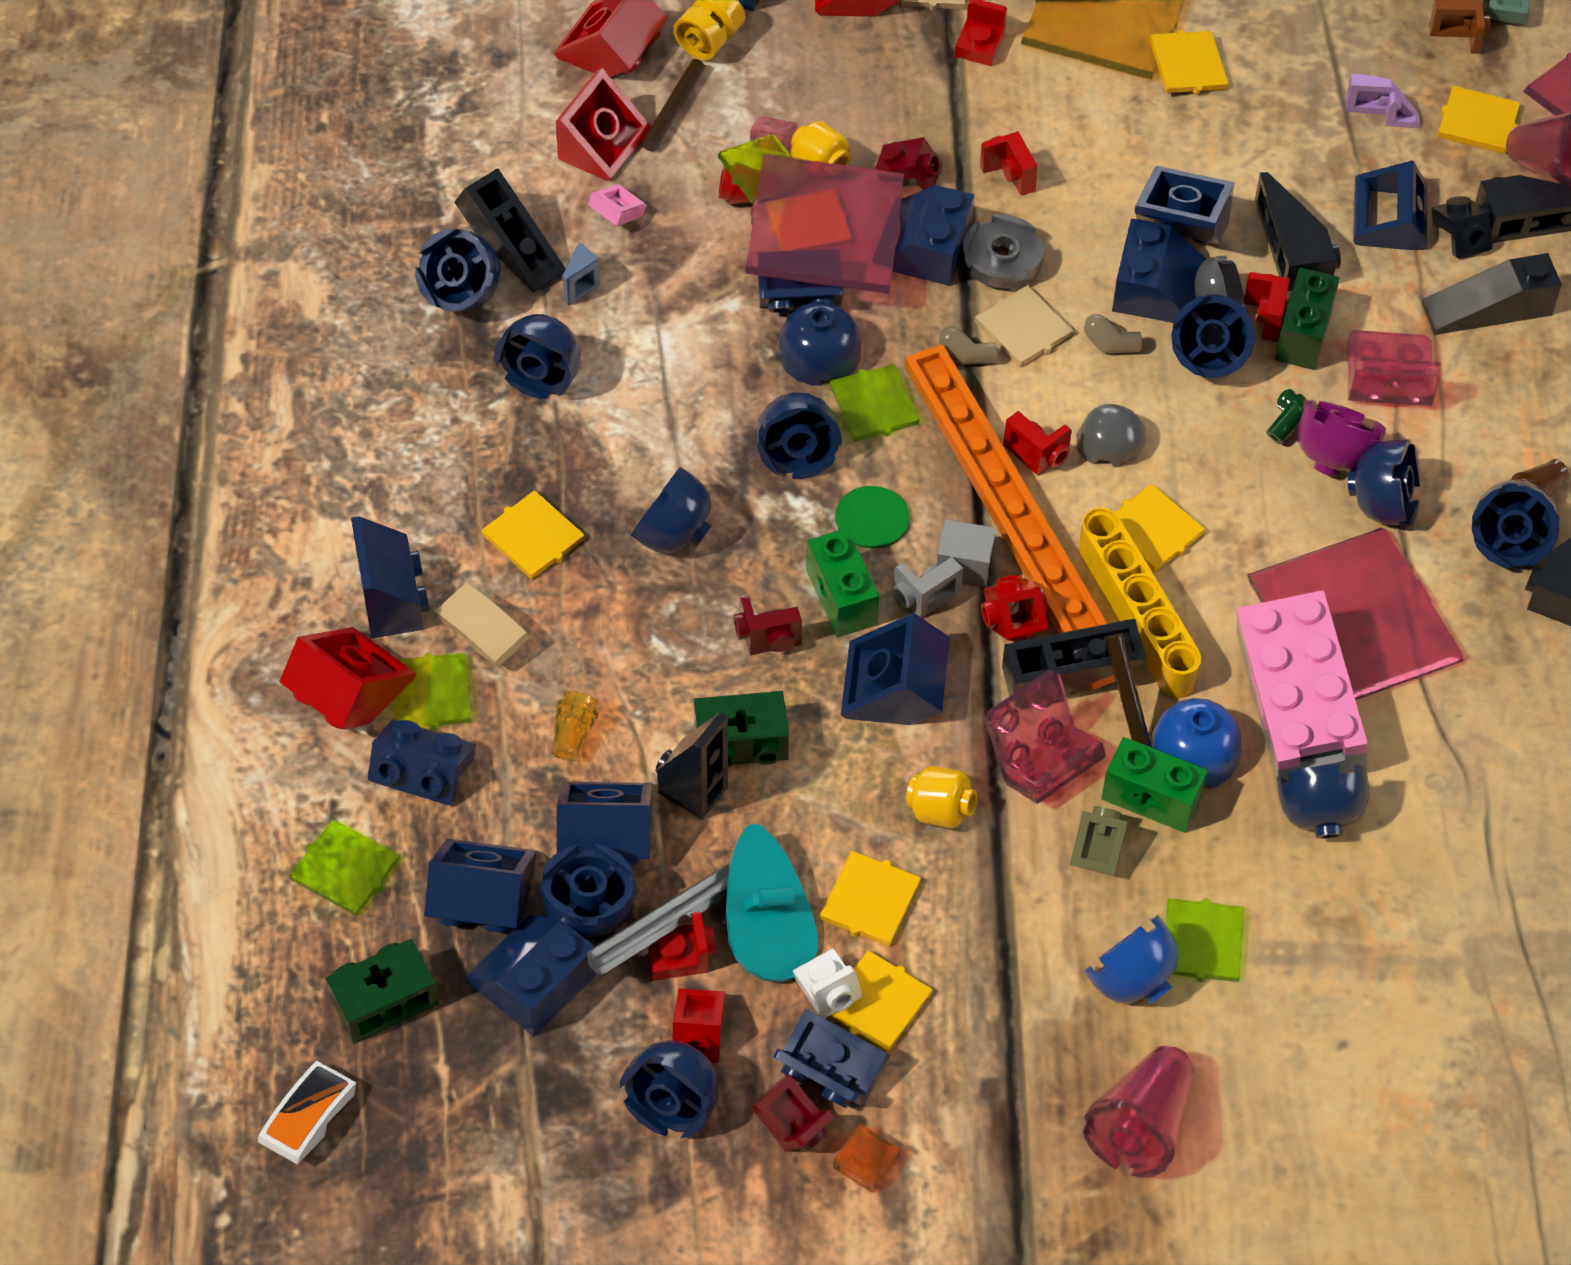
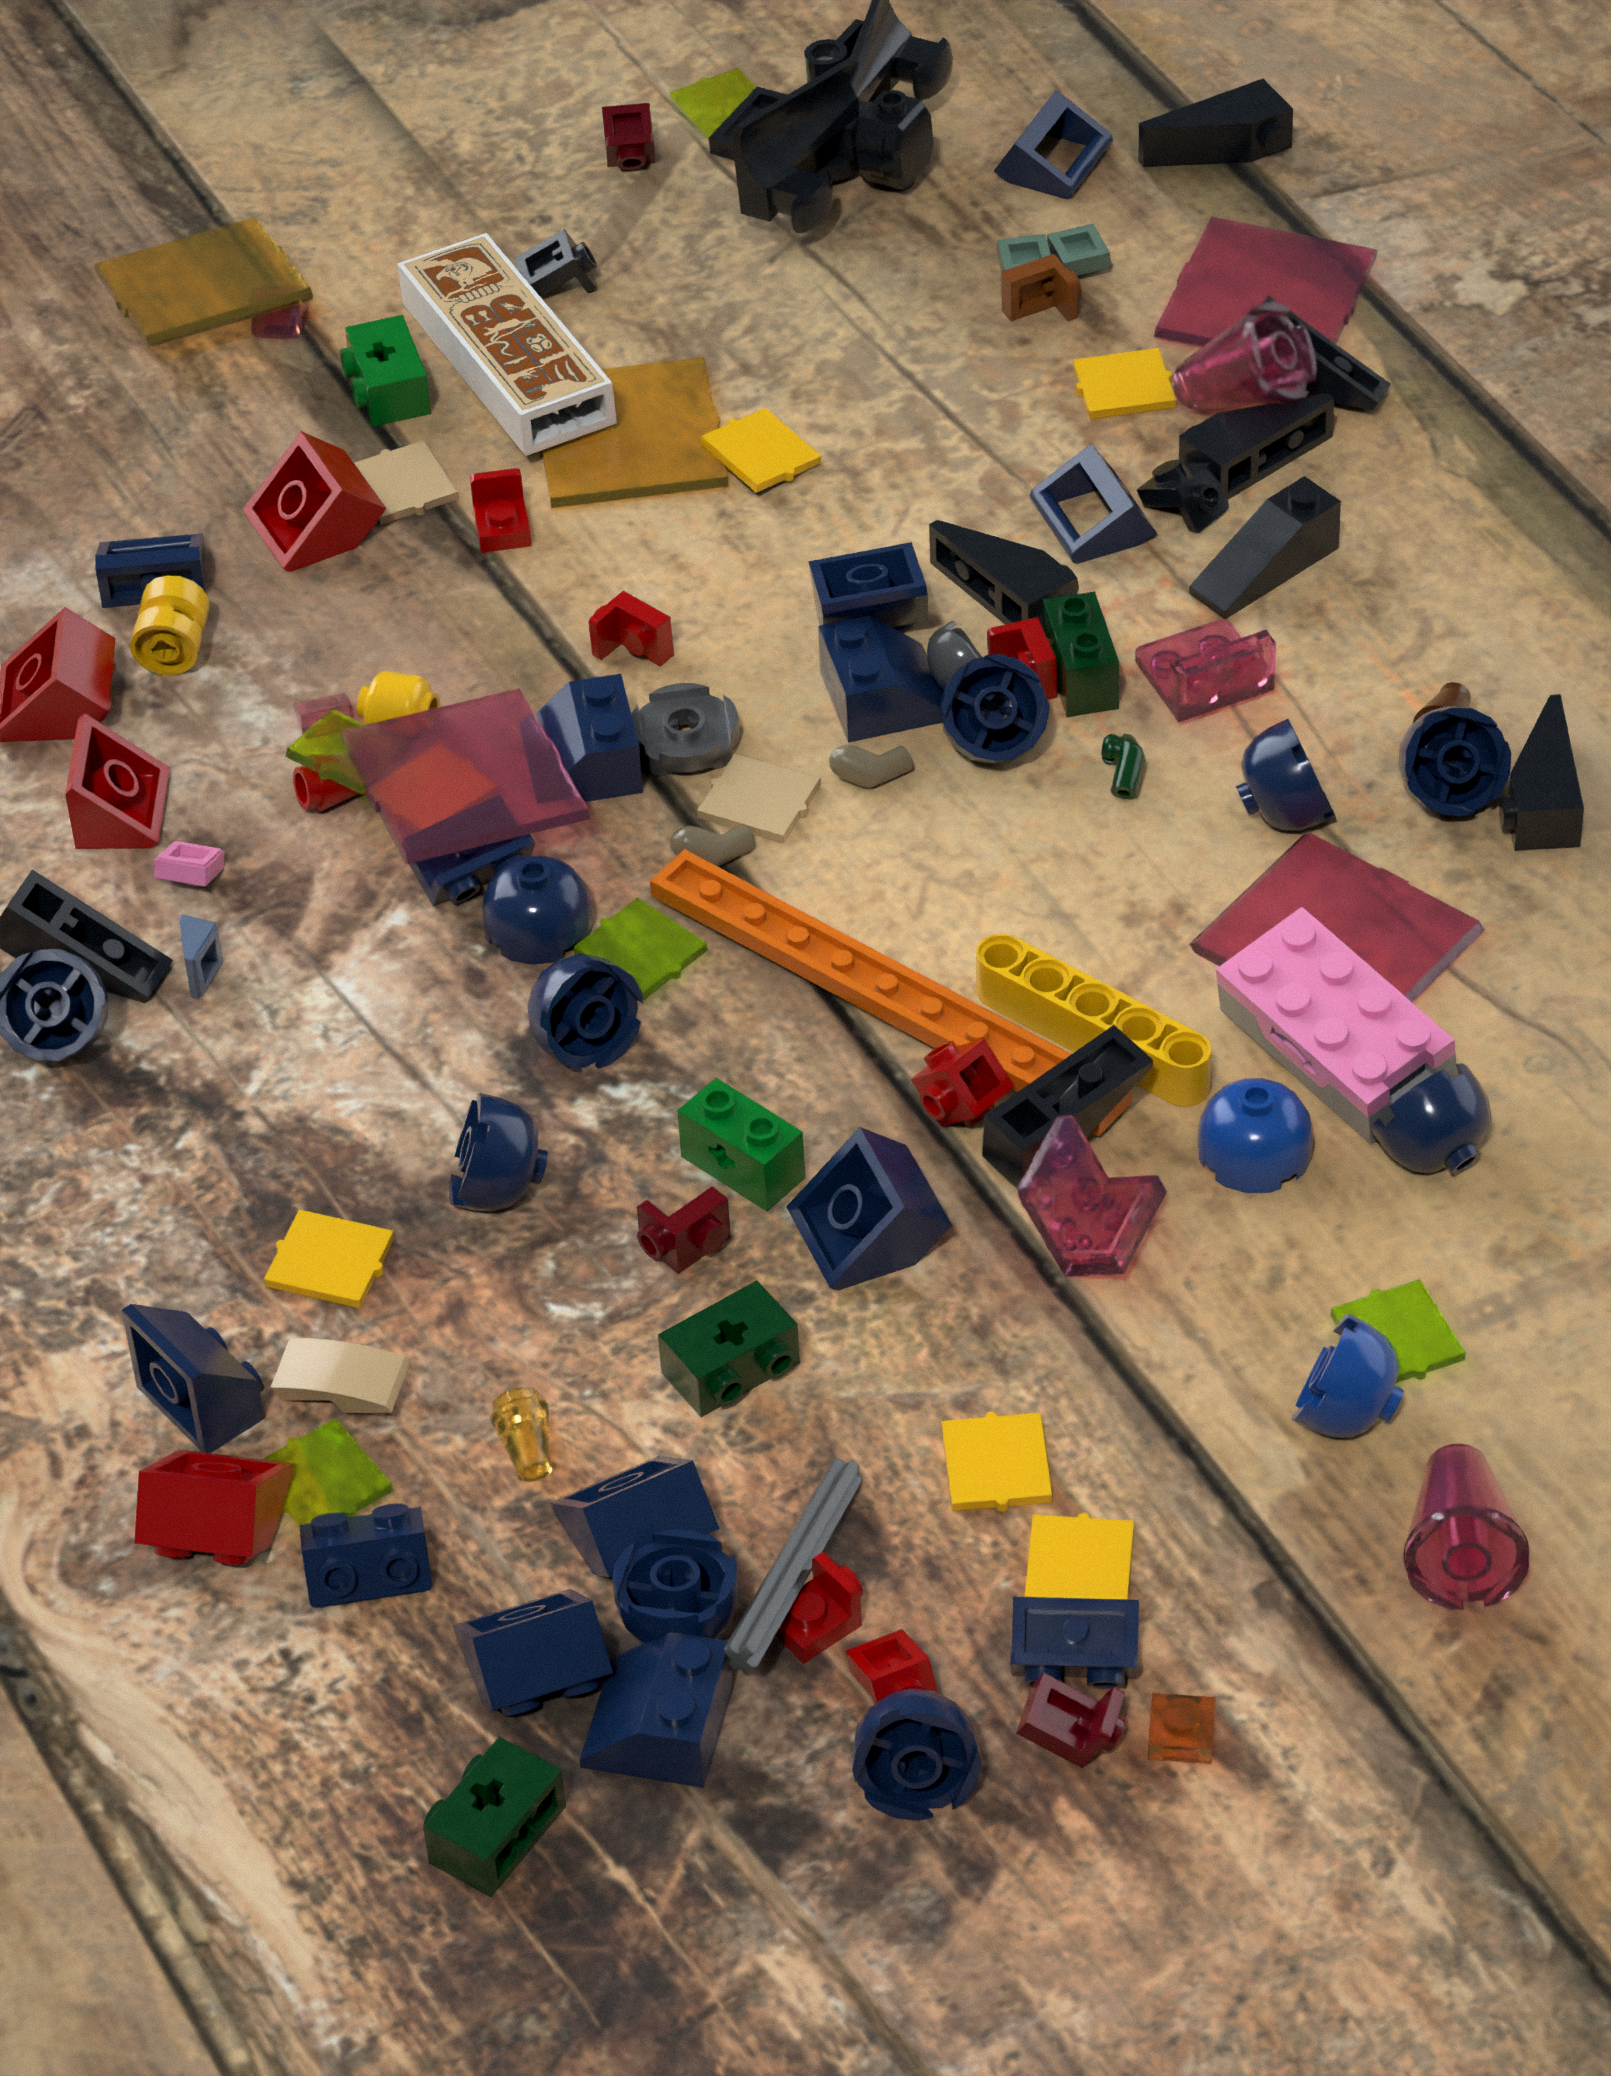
camera: 25 degrees left, 10 degrees down
(305, 1111) = (492, 1990): slope -> none
(344, 867) = (348, 1713): clear neon green piece -> none
(539, 355) = (214, 1057): dark blue cylinder -> none
(673, 105) = (180, 733): dark brown bar -> none
(697, 768) = (710, 1400): black slope -> none
(767, 909) = (892, 1521): teal shield -> none
(828, 983) = (1015, 1564): white bracket -> none
(873, 516) = (721, 1055): green piece -> none
(912, 158) = (512, 670): dark red bracket -> none
(931, 590) = (845, 1109): light grey bracket -> none
(941, 796) = (1010, 1314): yellow head -> none
(970, 547) = (861, 1054): light grey panel -> none
(1032, 446) = (863, 910): red bracket -> none
(1099, 841) = (1218, 1280): olive bracket -> none
(1111, 435) = (939, 864): dark grey hair -> none
(1127, 689) = (1160, 1116): dark brown bar -> none
(1154, 784) = (1241, 1195): green brick -> none
(1158, 526) = (1059, 931): yellow piece -> none
(1335, 436) = (1199, 759): magenta cylinder -> none
(1380, 96) = (1002, 400): lavender slope -> none

